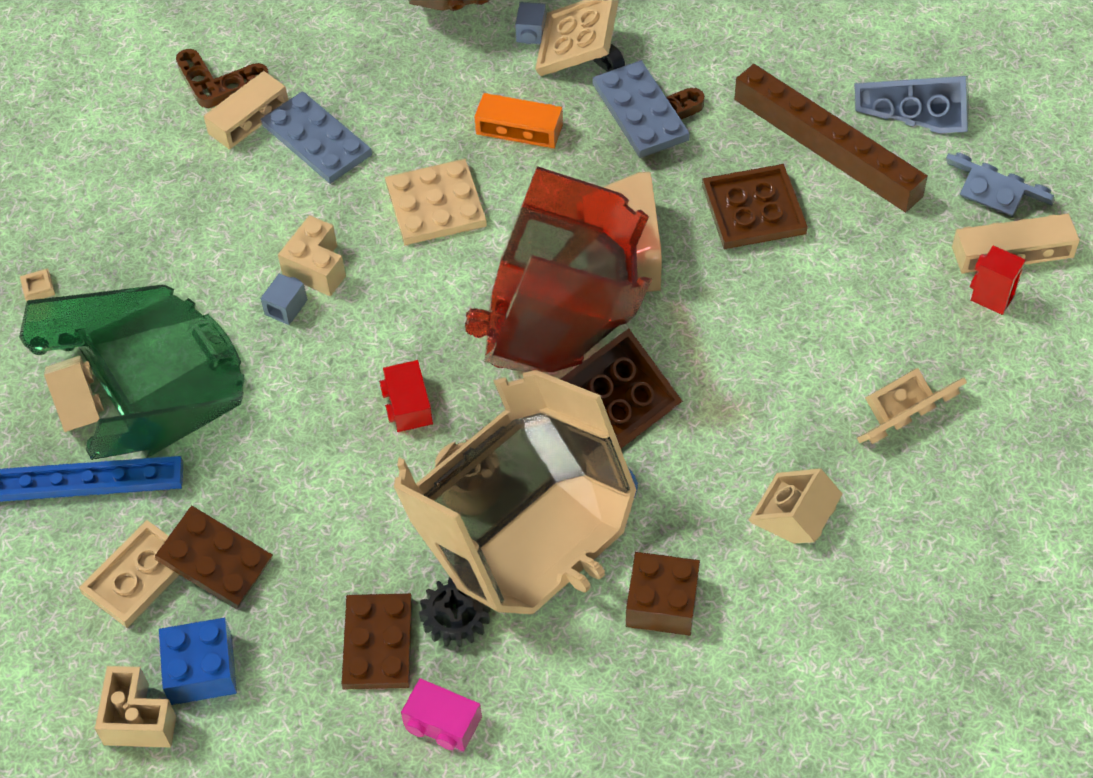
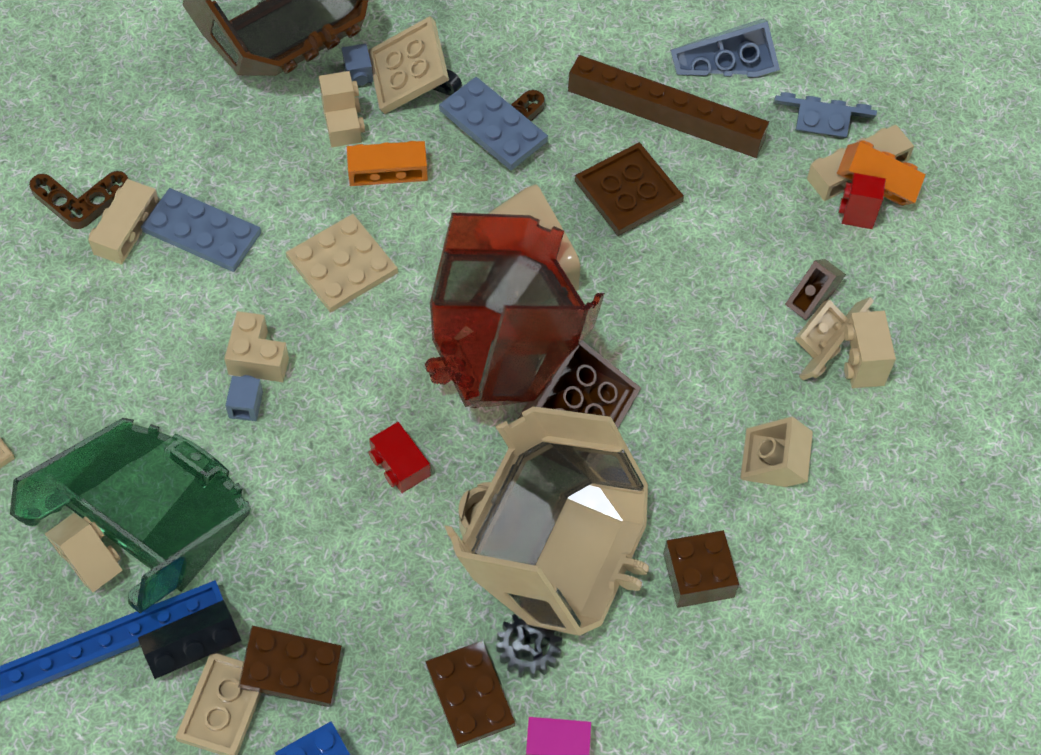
camera: 25 degrees left, 5 degrees up
(131, 501) = (189, 639): none -> black brick
(494, 57) = (341, 108): none -> tan brick
(914, 348) = (815, 288): none -> slope
(937, 431) = (870, 351): none -> tan brick
(1044, 268) = (902, 179): none -> orange brick

